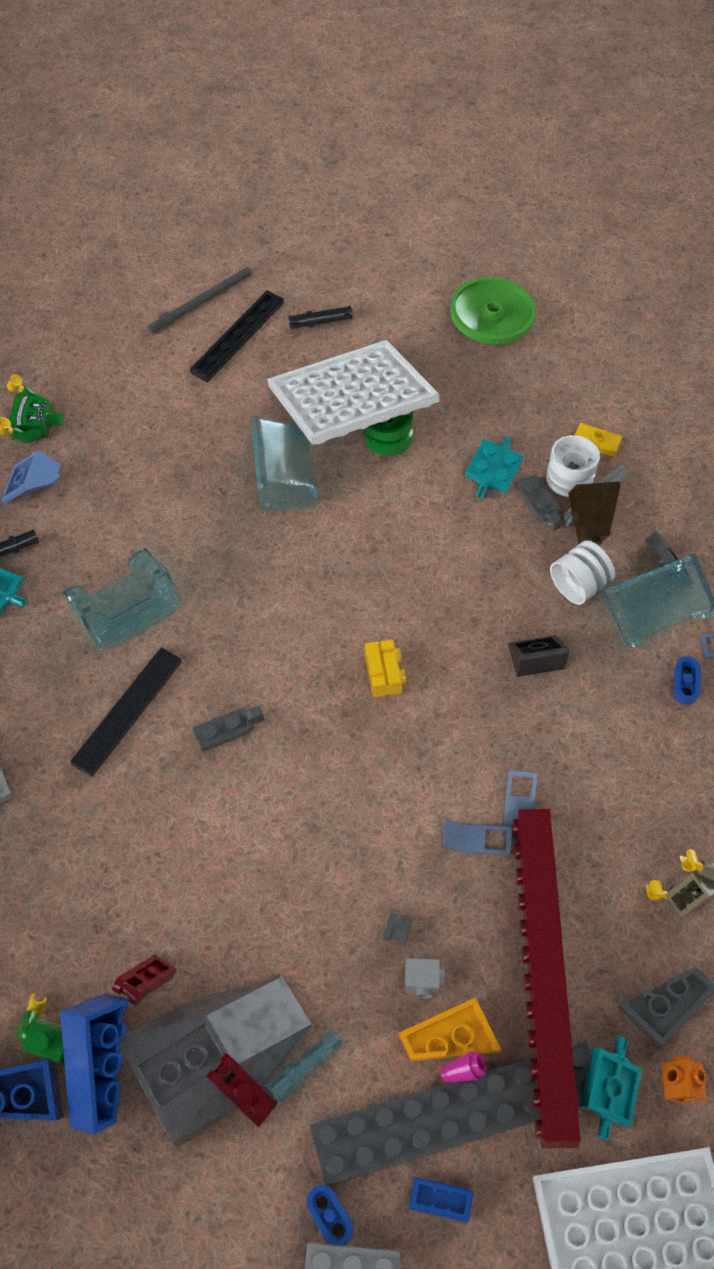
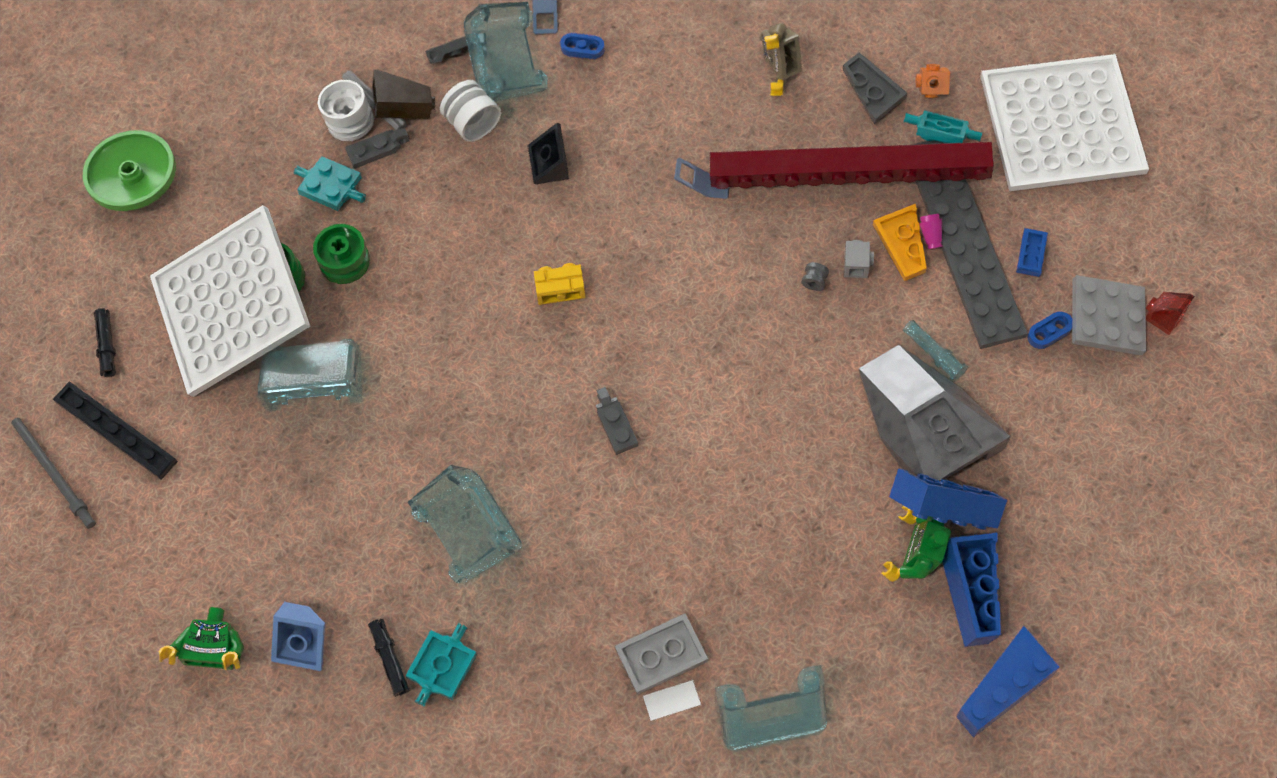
camera: 85 degrees left, 5 degrees up
(126, 712) = (593, 516): black tile -> none
(143, 979) = (872, 469): dark red plate -> none
(242, 1090) = (963, 388): dark red plate -> none
(411, 477) = (341, 253): none -> green wheel
(472, 838) = (729, 222): sand blue piece -> none
(605, 441) = (306, 94): yellow plate -> none

